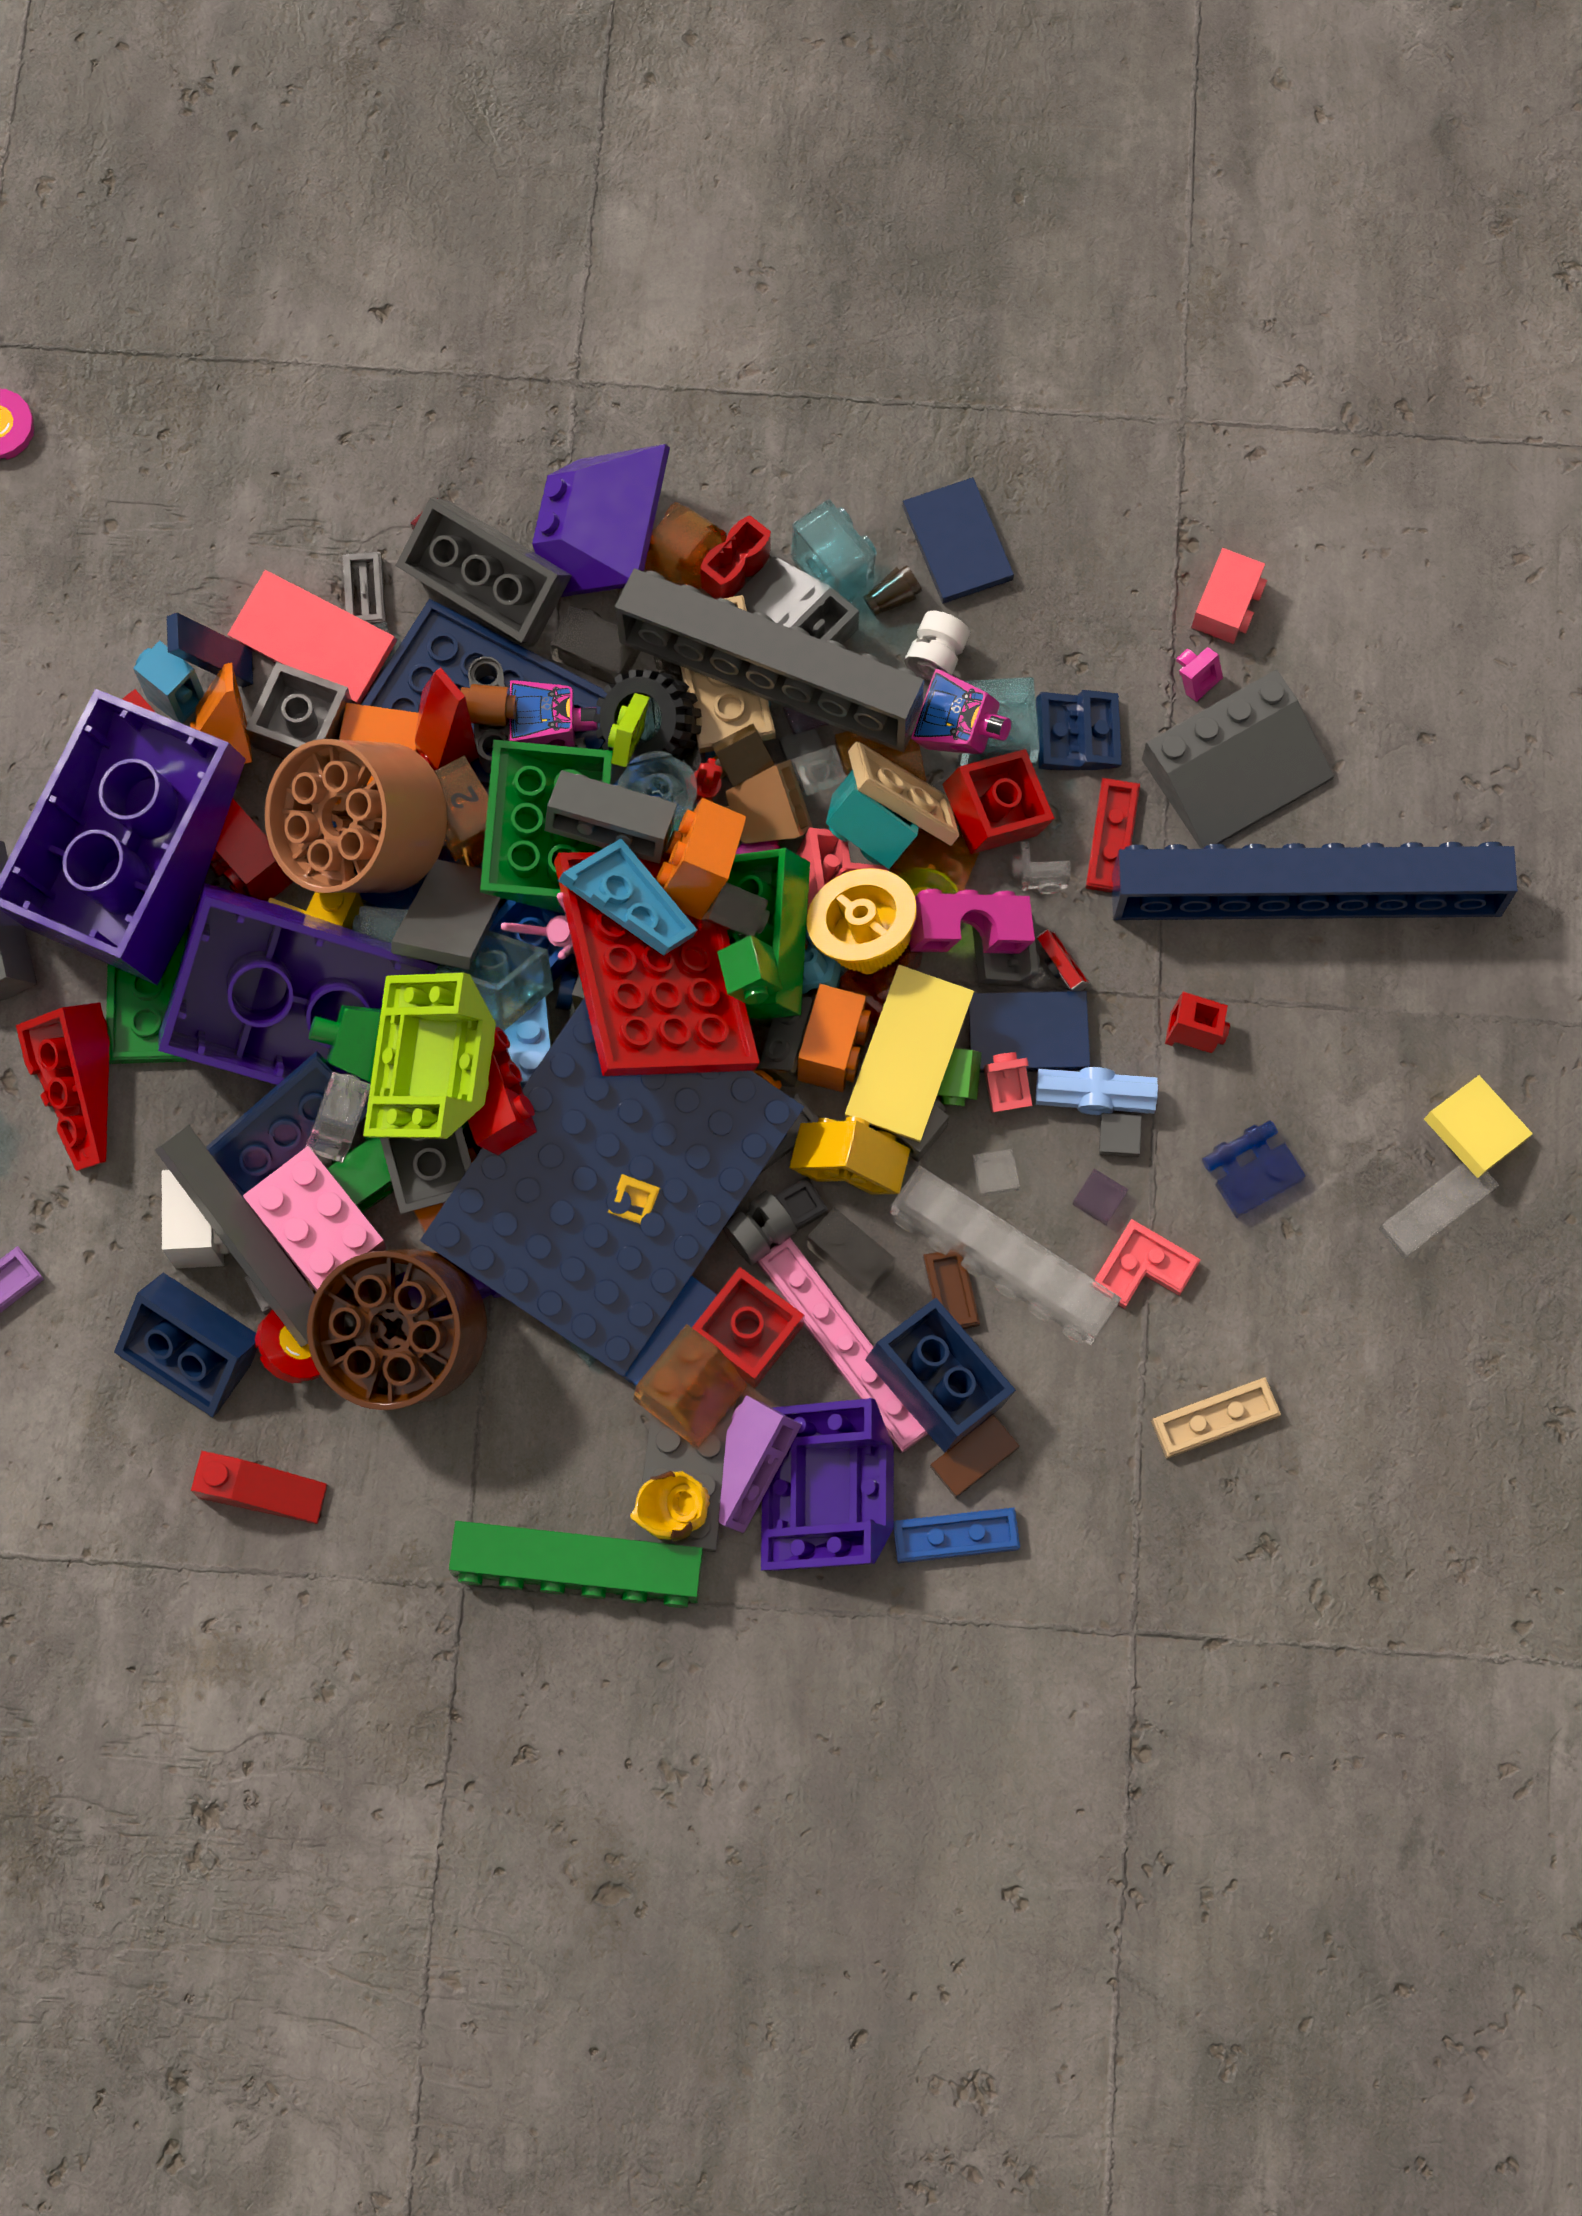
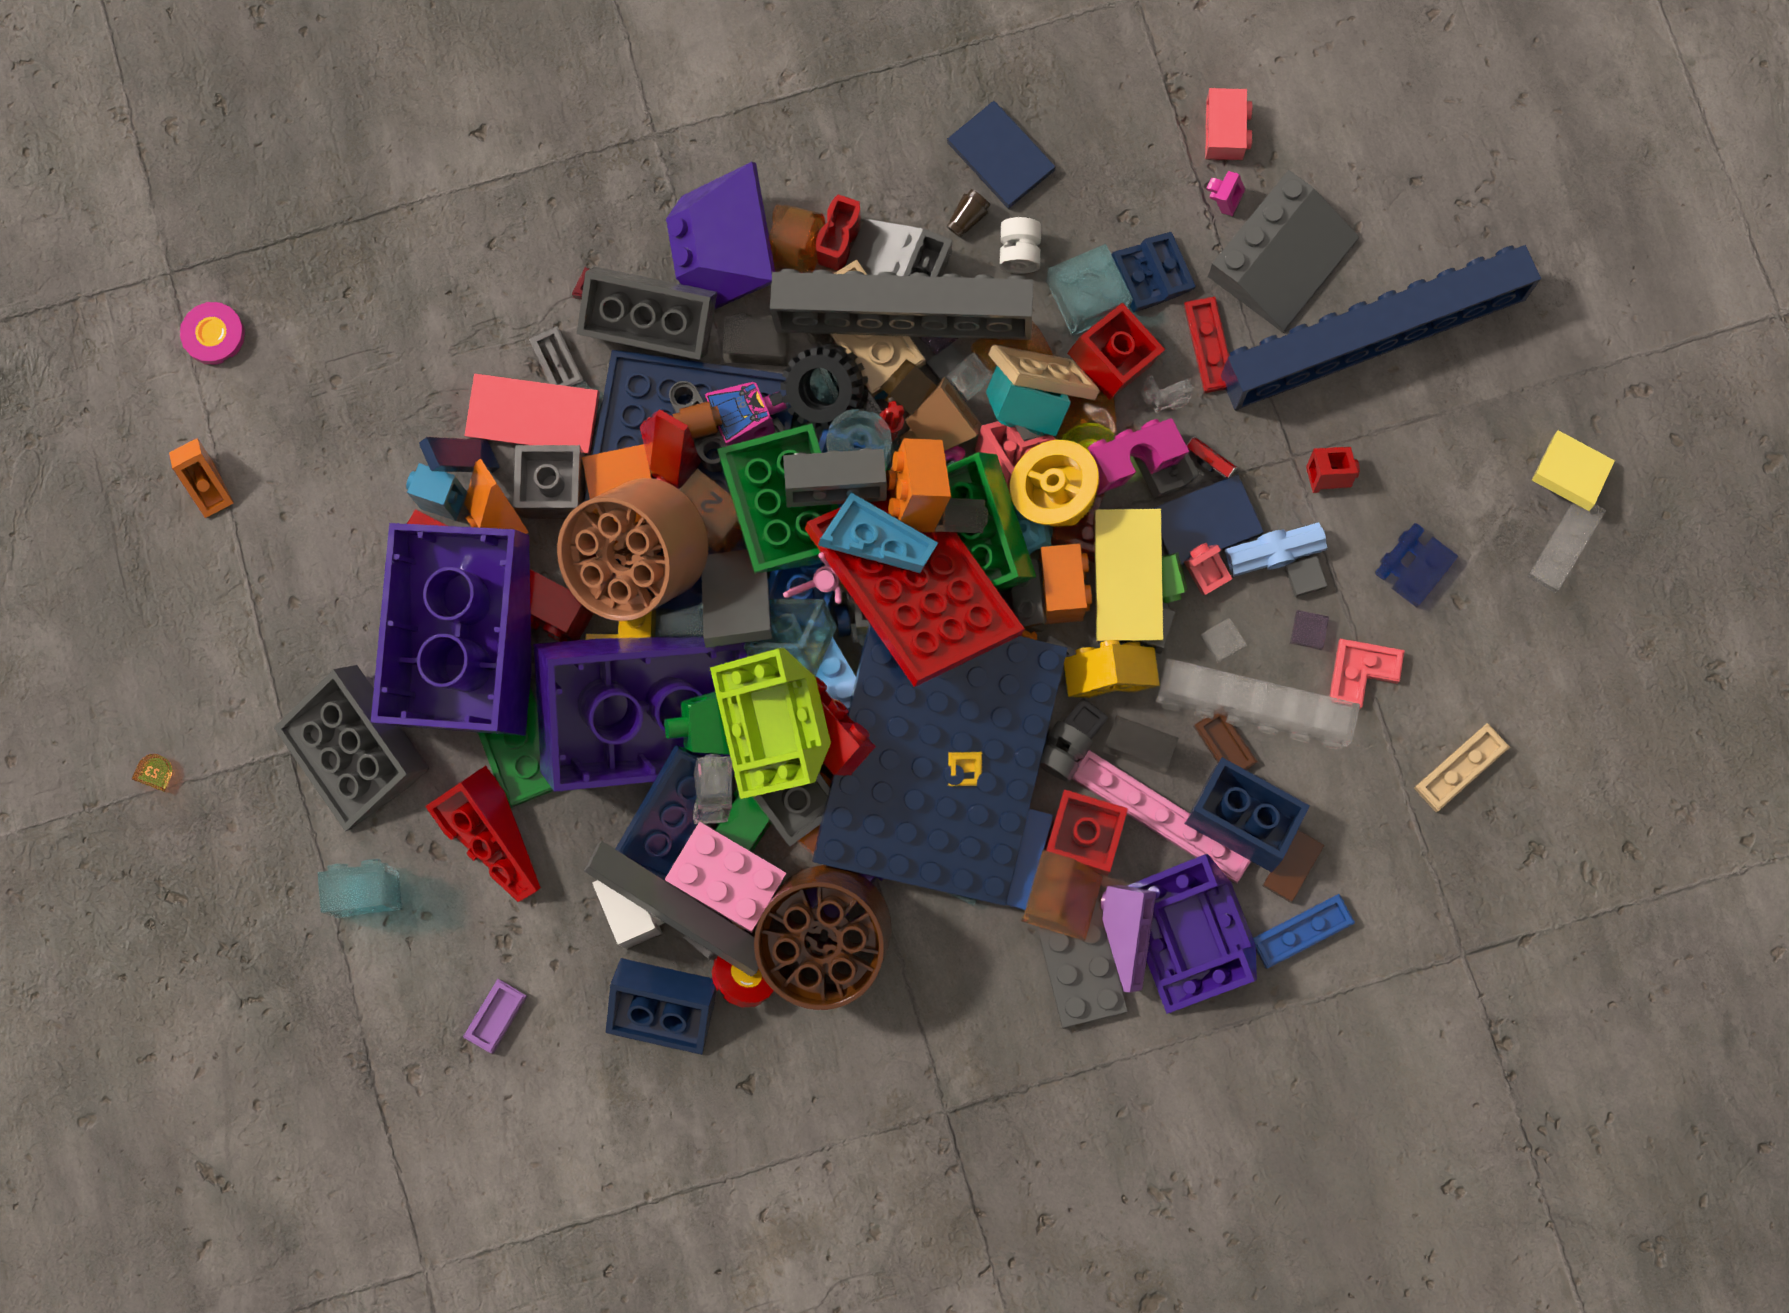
camera: 15 degrees left, 5 degrees up
(258, 1487) = (761, 1096): red slope -> none
(576, 1562) = (1027, 1061): green brick -> none
(628, 730) = (816, 401): lime plate -> none
(671, 1505) = (1085, 993): yellow hair -> none
(750, 970) = (990, 559): green brick -> none
(833, 551) = (913, 199): clear light blue brick -> none
(958, 717) = (1064, 297): torso -> none

